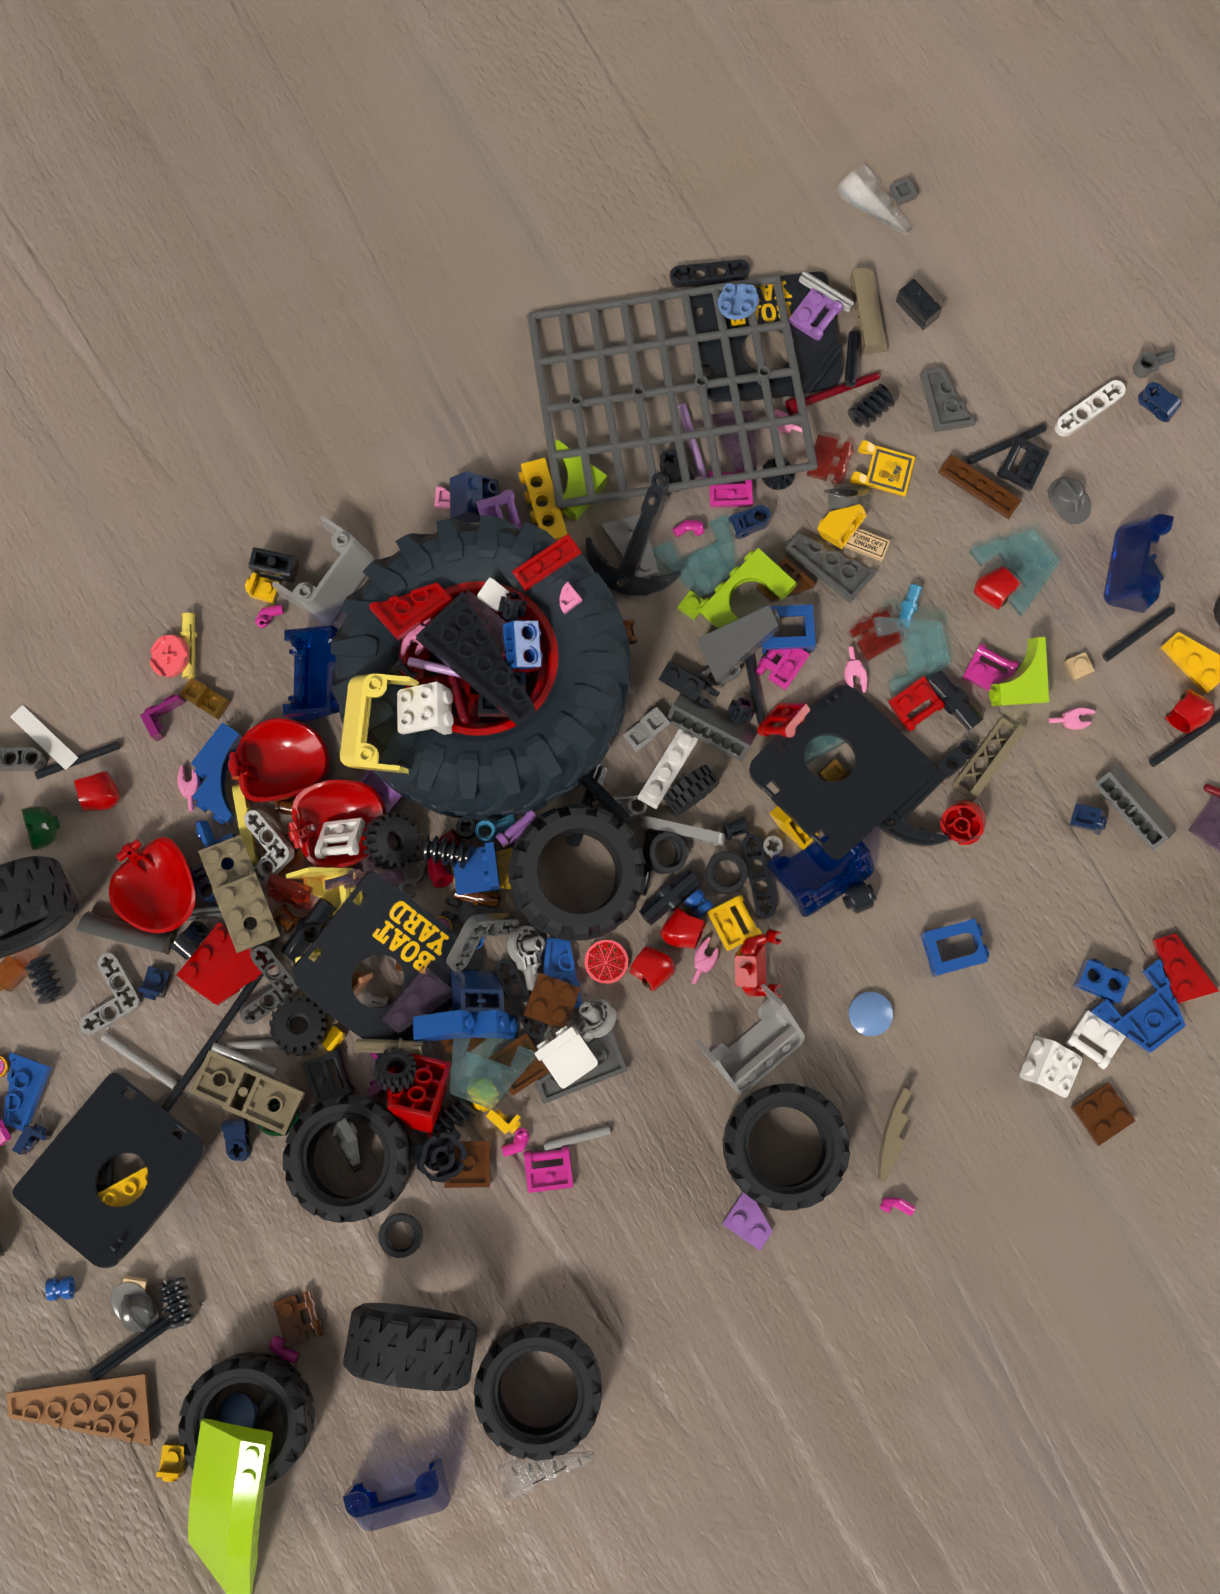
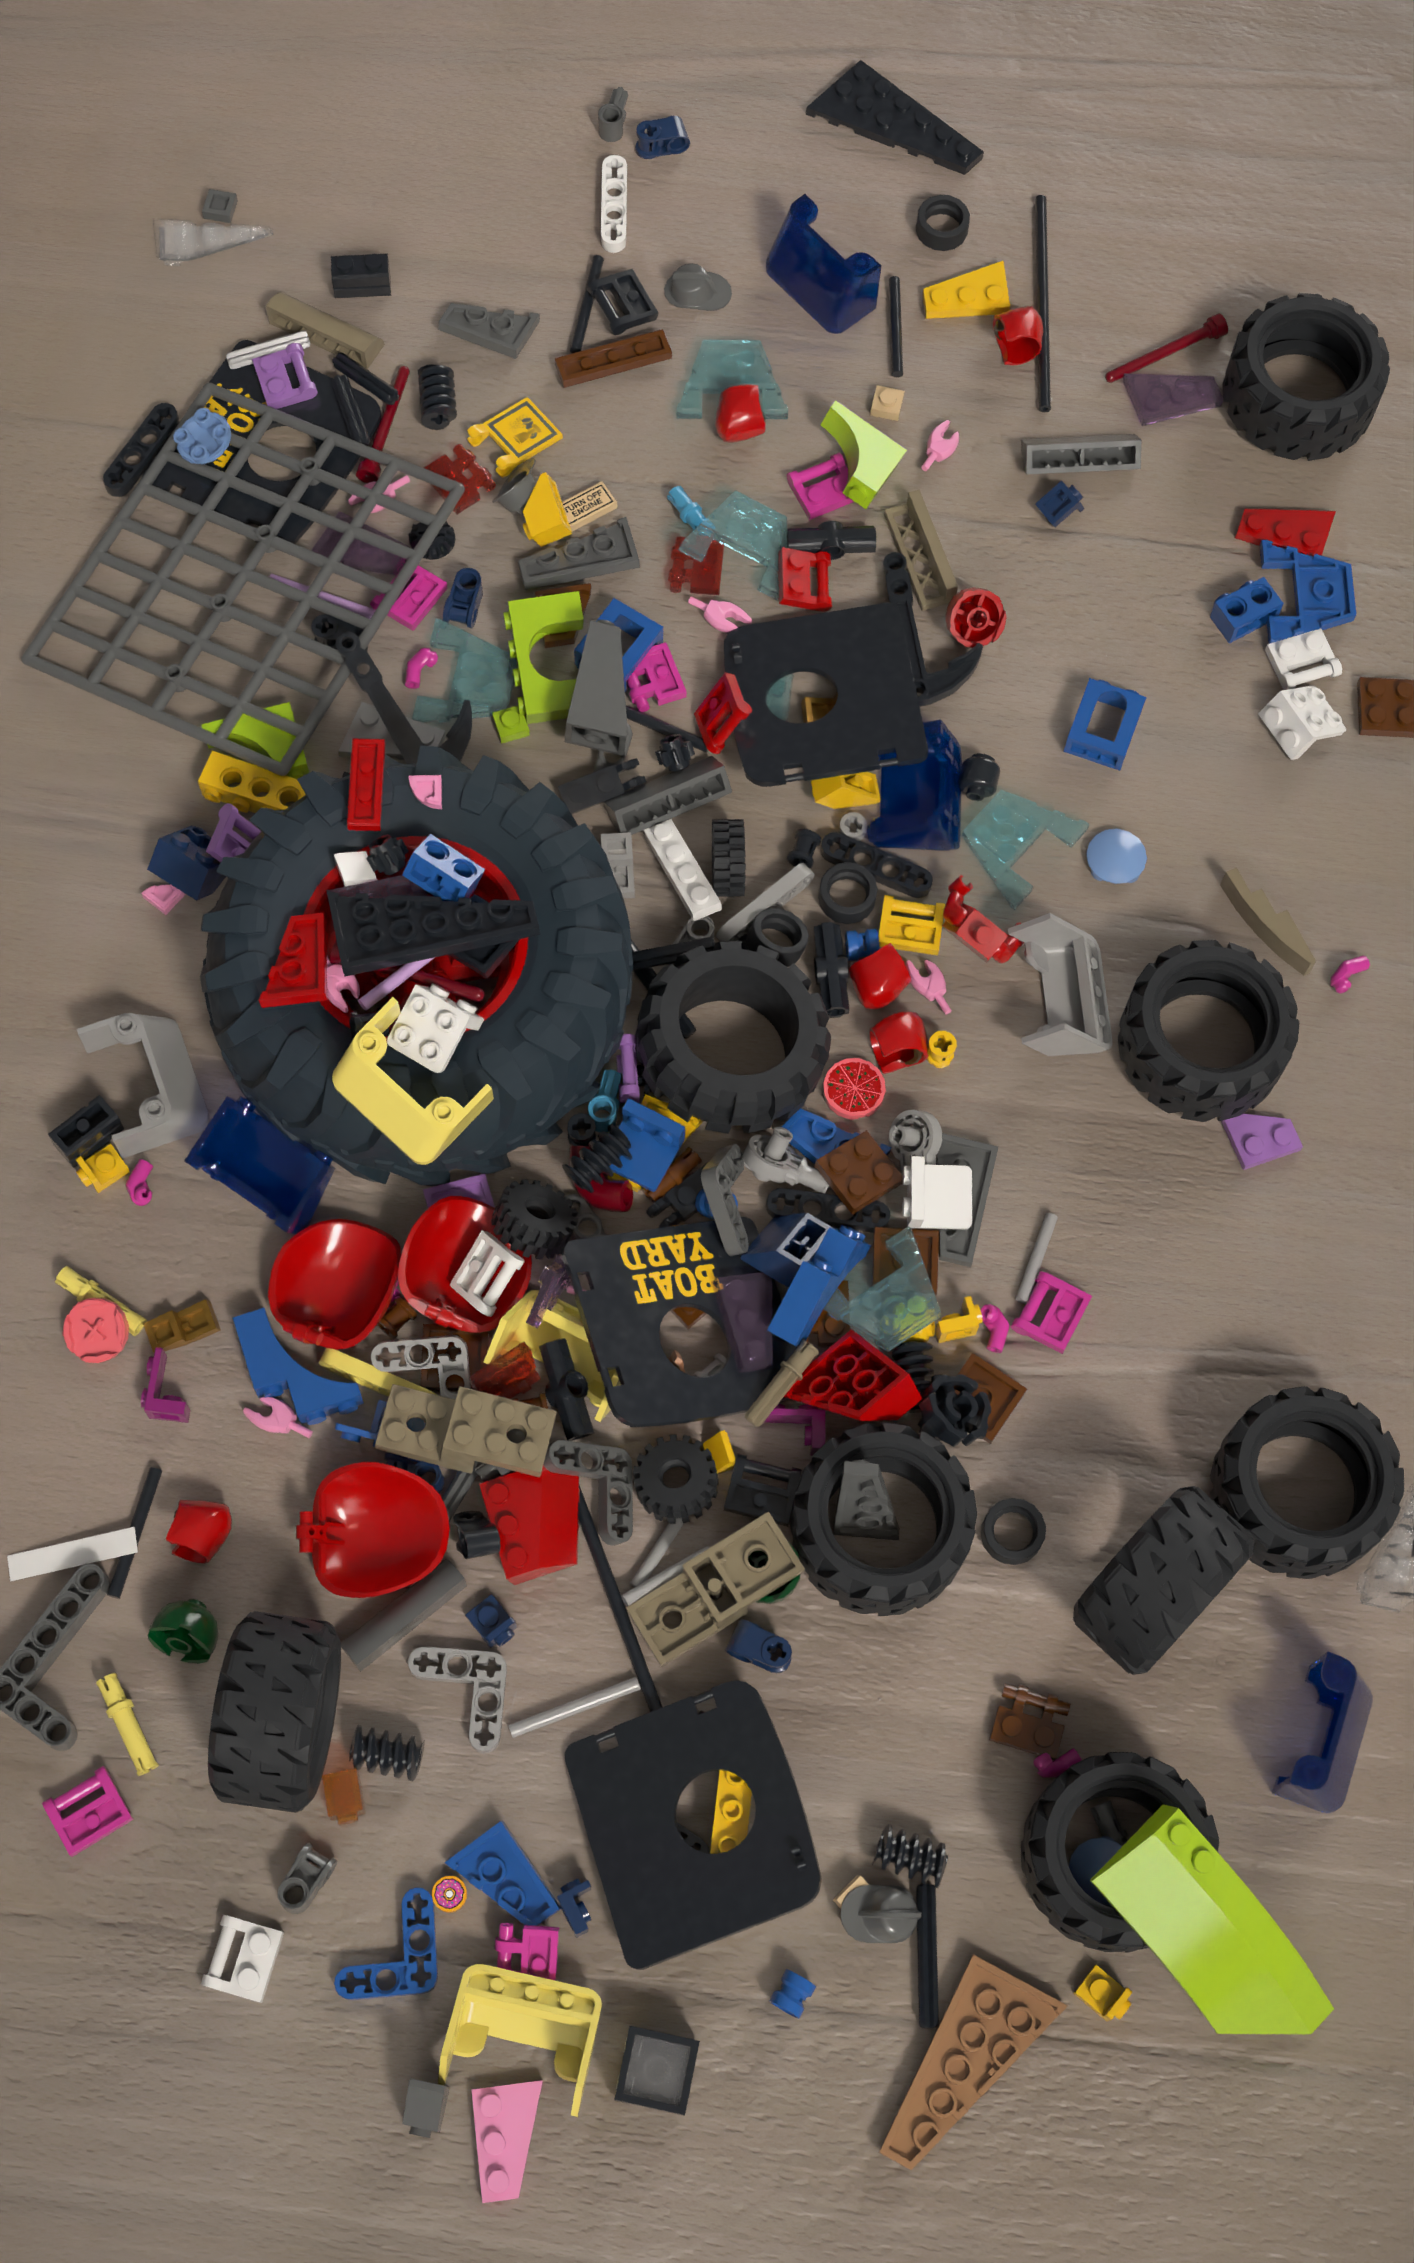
camera: 60 degrees left, 10 degrees down
(392, 1080) = (823, 1398): black tyre -> none
(665, 988) = (947, 1043): none -> yellow bush
(836, 938) = (1007, 831): none -> clear light blue wing

